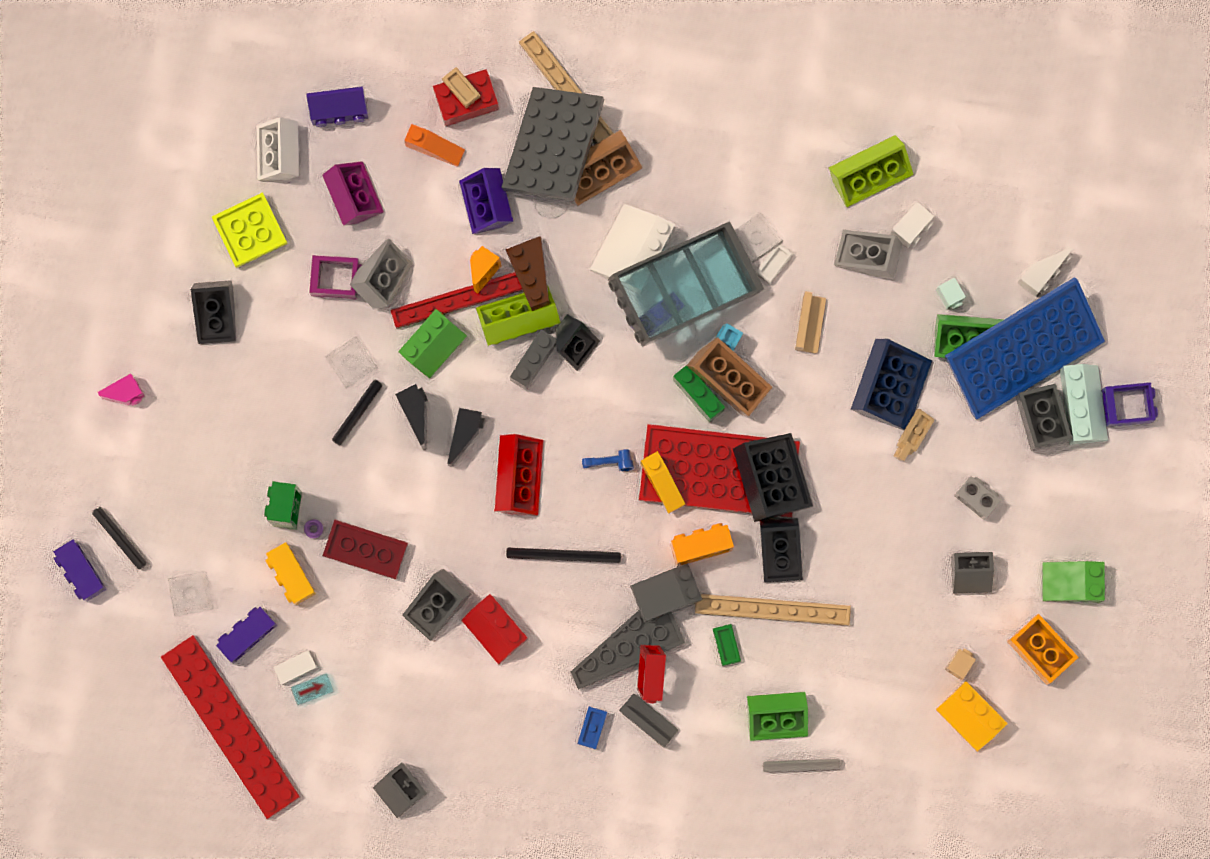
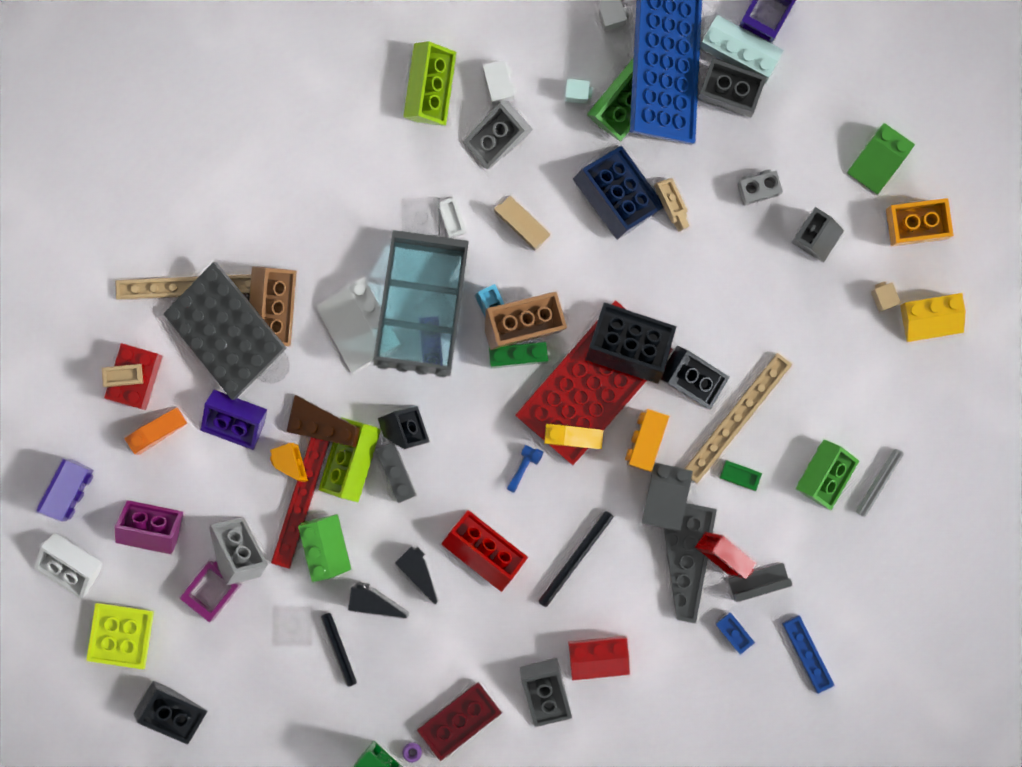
camera: 50 degrees left, 5 degrees up
(616, 802) = (808, 654): none -> blue tile

